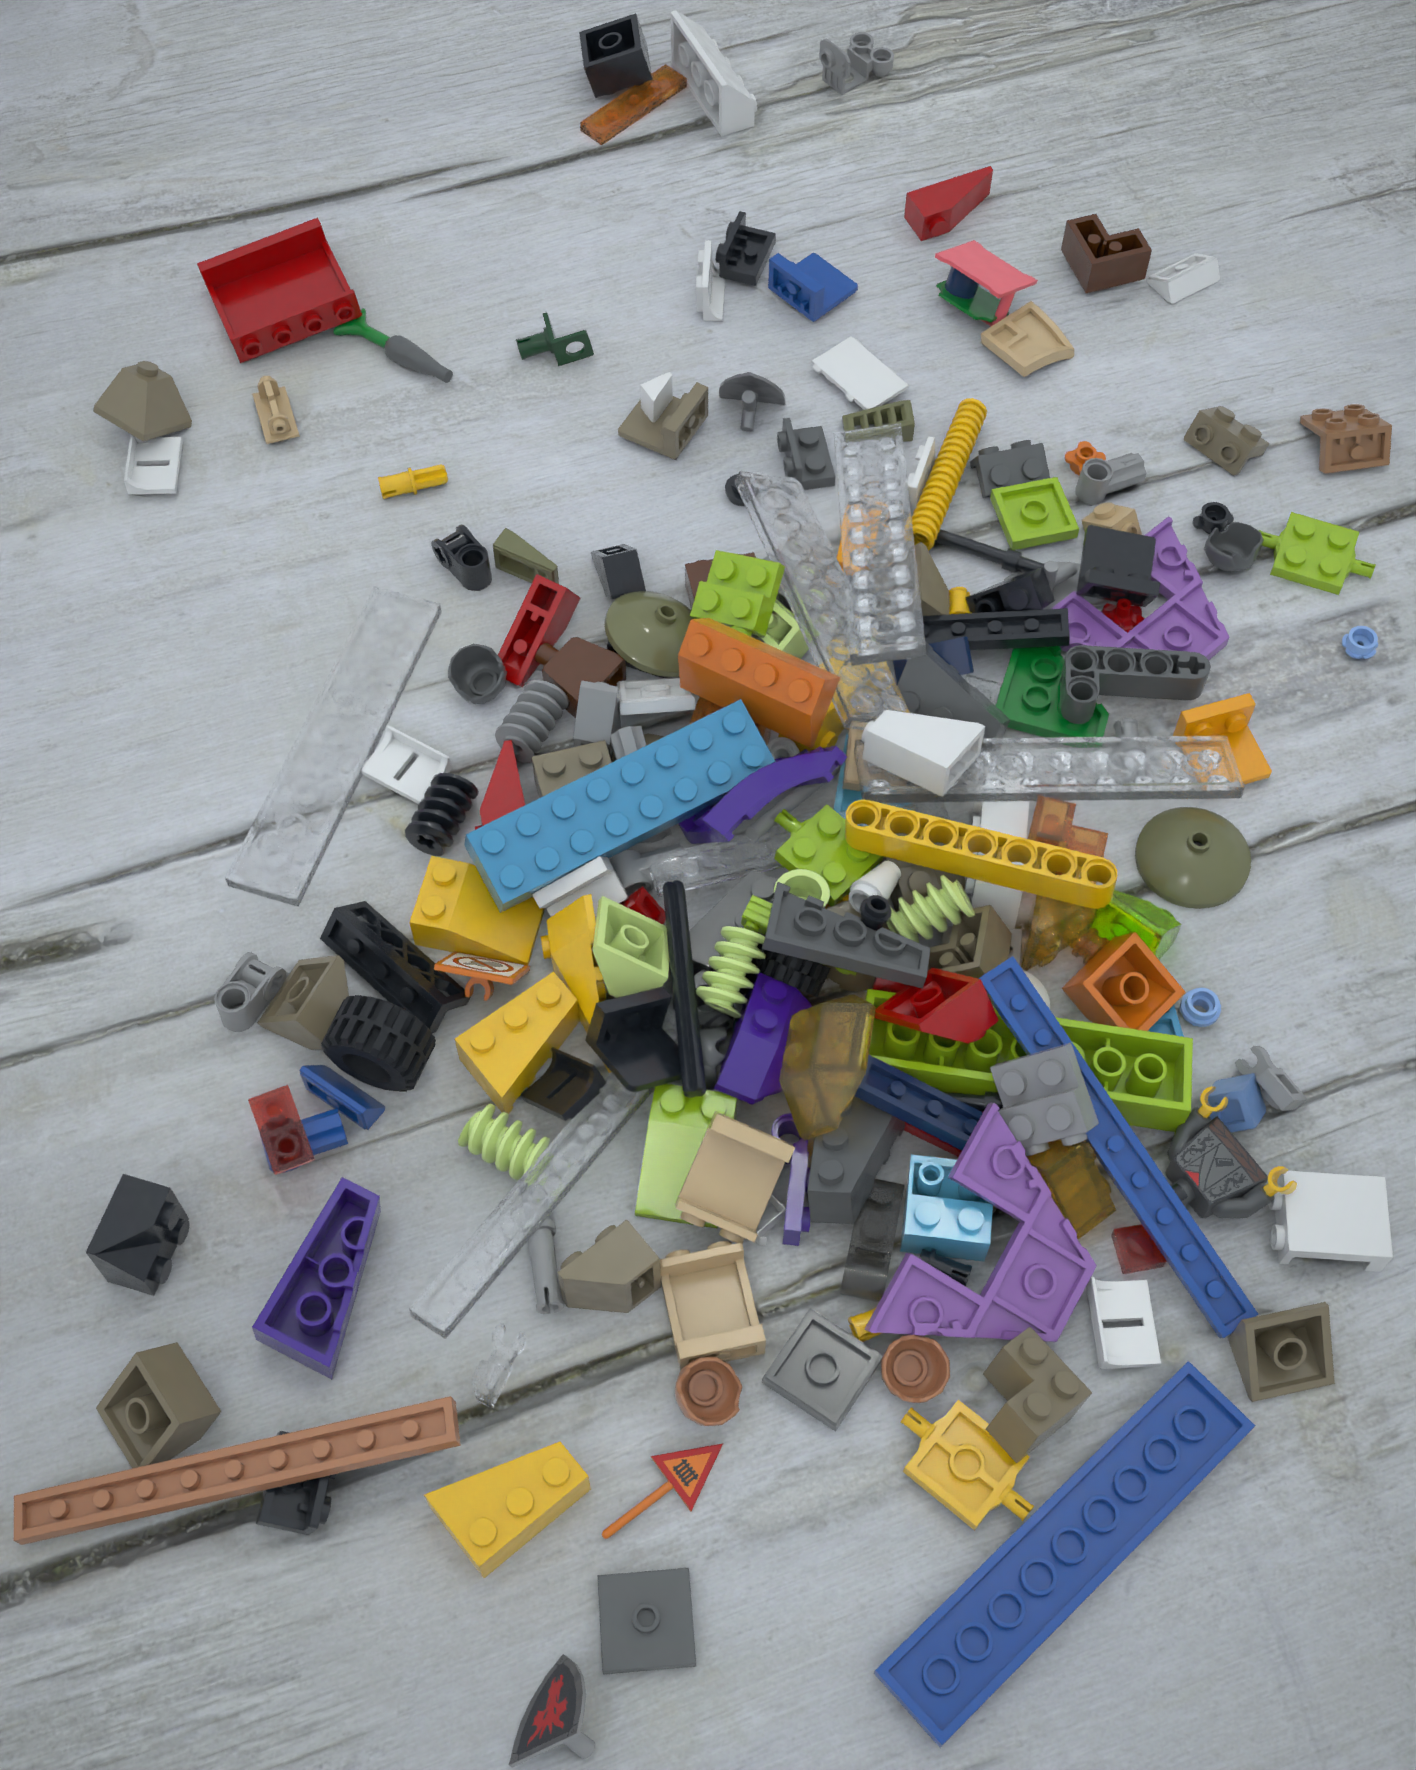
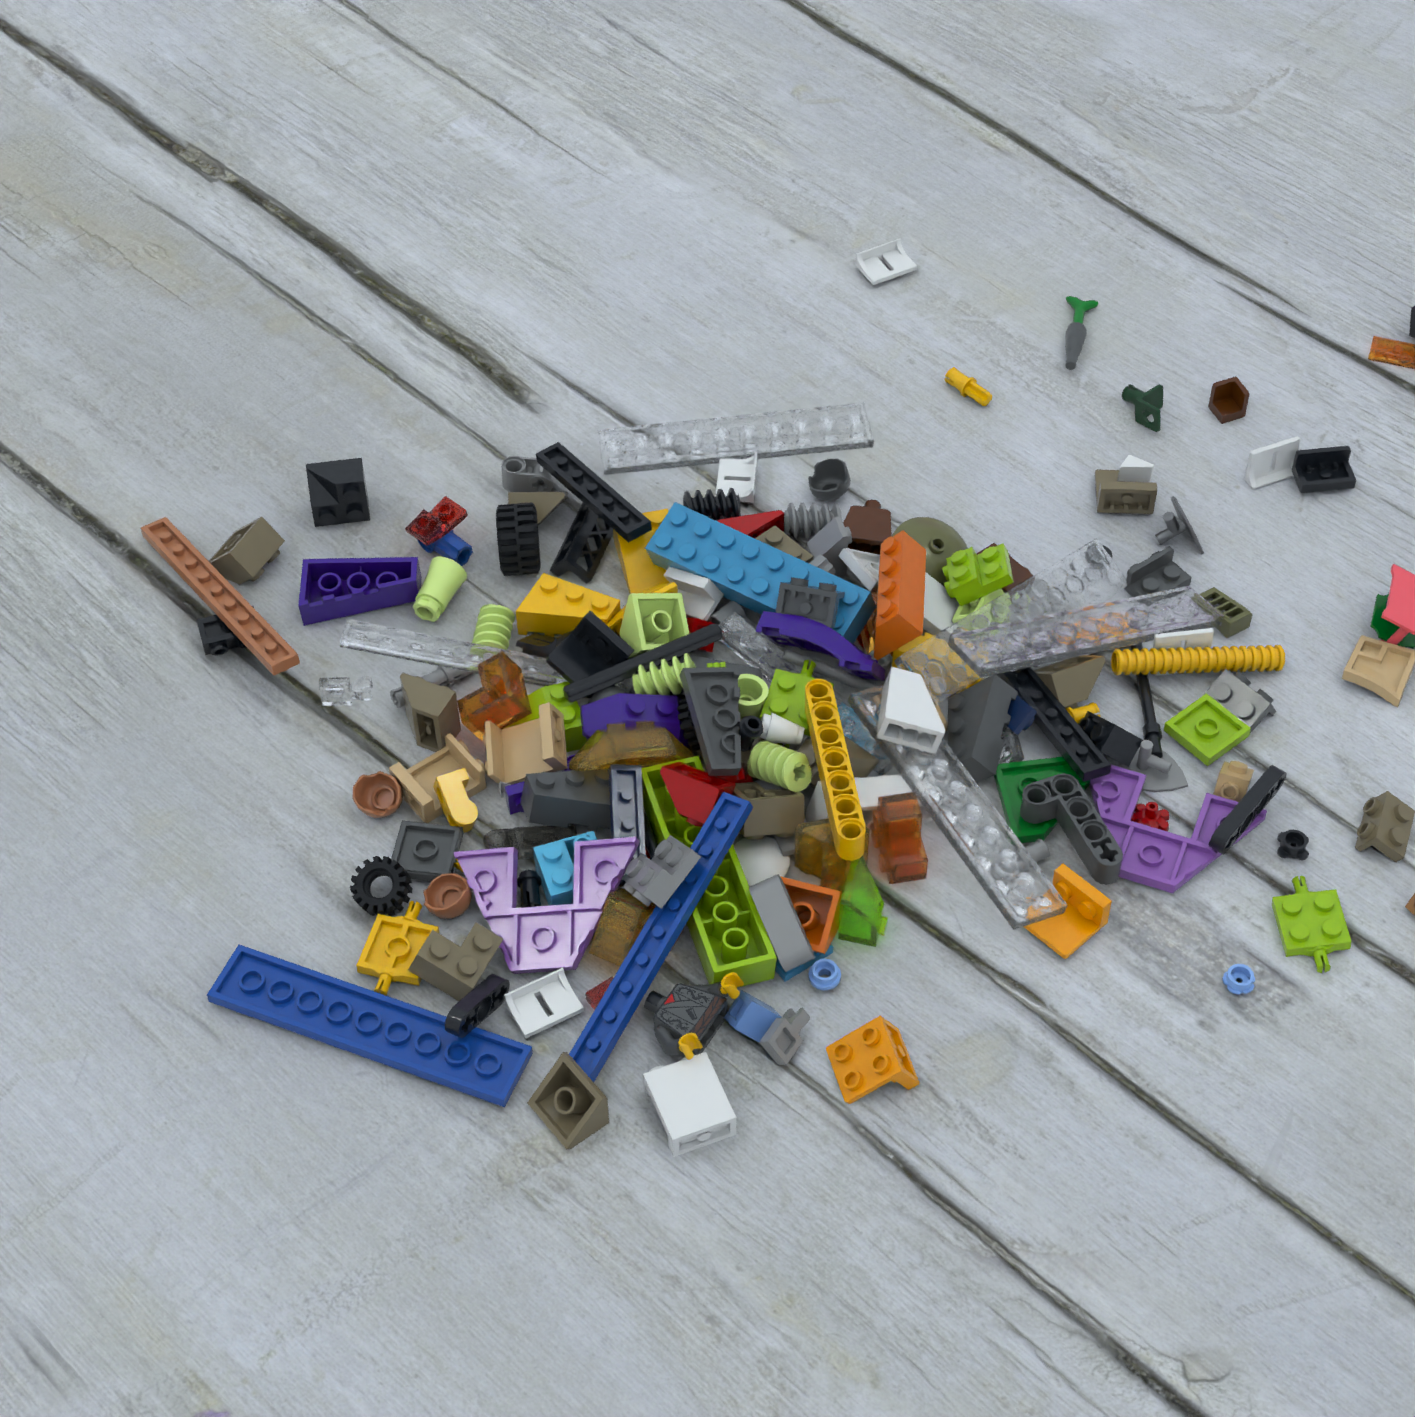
camera: 65 degrees right, 10 degrees down
(144, 402) = (923, 234): dark tan slope -> none
(274, 411) = (973, 298): tan hinge -> none
(279, 290) = (1075, 254): red panel -> none
(342, 1095) = (484, 548): blue slope -> none
(359, 922) = (594, 492): none -> black plate
(382, 1170) = (438, 588): none -> yellowish green plant
(464, 558) = (922, 438): black piece -> none
(482, 970) = (604, 570): piece -> none
(509, 1504) = (259, 729): yellow wedge -> none
(521, 559) = (942, 464): olive slope -> none
(539, 621) = (897, 492): red slope -> none
(554, 1715) = (139, 808): shield -> none
(596, 273) = (1228, 400): none -> reddish brown panel
(618, 570) = (969, 515): black slope -> none
(646, 1621) = (223, 826): dark grey plate -> none
(651, 1171) = (500, 698): none -> clear orange brick
(685, 1473) = (325, 813): piece -> none
(723, 762) = (809, 601): none -> dark grey bracket
(767, 1298) = (454, 799): none -> yellow leg
(809, 285) = (1325, 522): blue bracket -> none
(859, 374) = (1261, 581): white piece -> none
(891, 1452) = (368, 874): none -> black tyre
(1081, 454) = (1289, 744): orange plate -> none
(1103, 476) = (1270, 751): light grey piece -> none
(1115, 1401) = (476, 1006): none -> black beam
(1117, 566) = (1182, 787): black bracket -> none
(1143, 1009) = (781, 923): none -> light grey beam
(1173, 527) = (1247, 809): none -> black beam
(1188, 872) = (957, 946): olive dish -> none
(1234, 548) = (1266, 862): dark grey hair -> none
(1341, 1016) = (871, 1059): none -> light orange bracket

